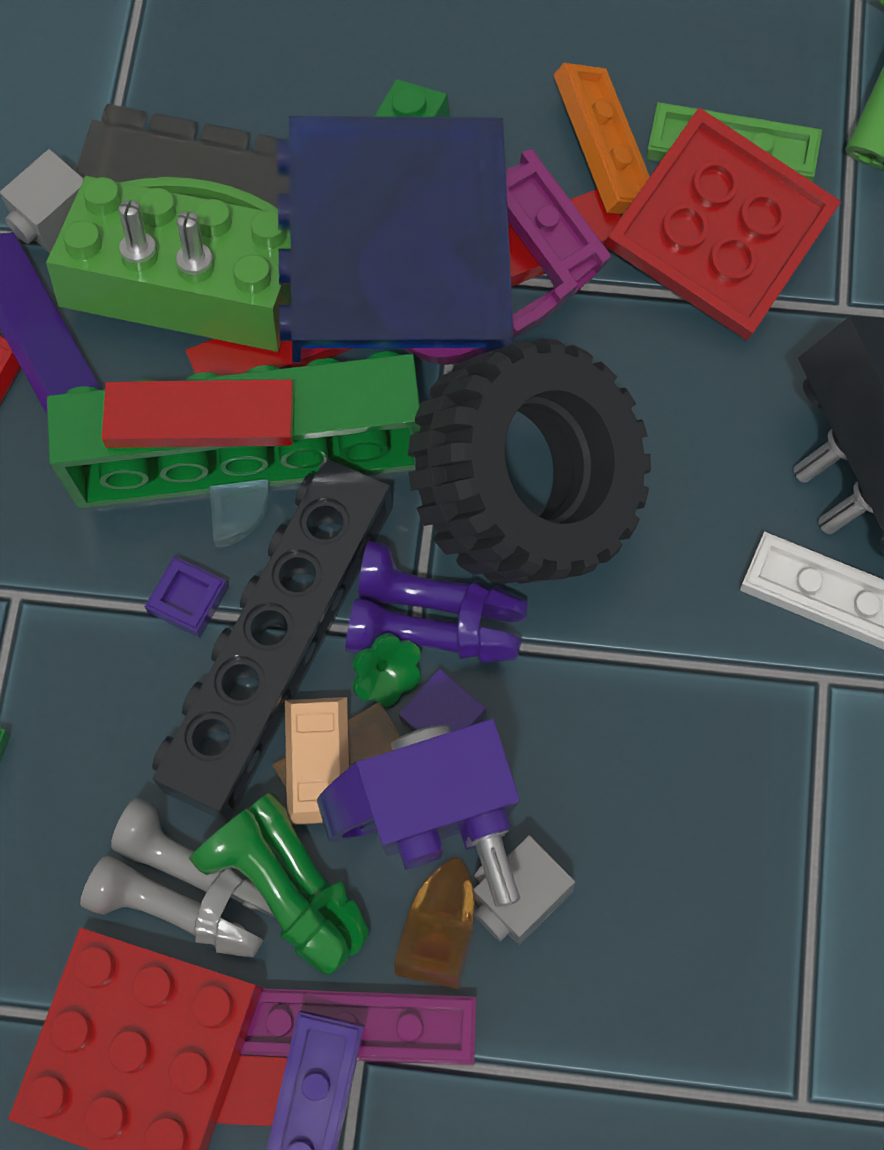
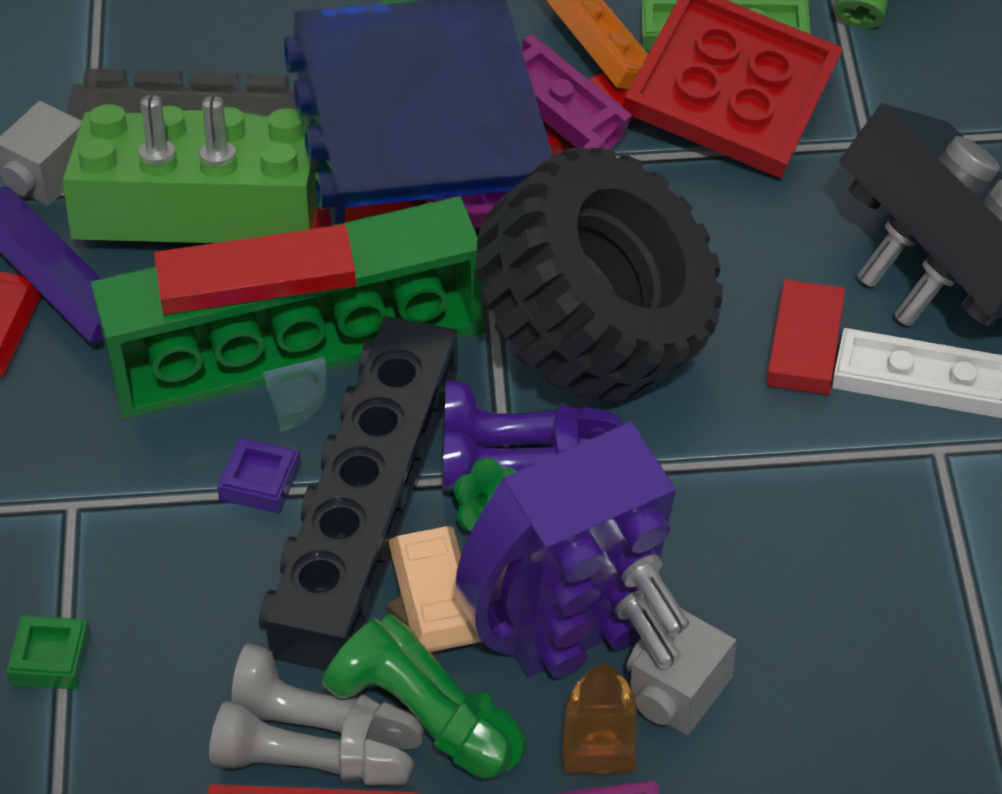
camera: 15 degrees left, 20 degrees down
(727, 532) = (806, 337): none -> red tile

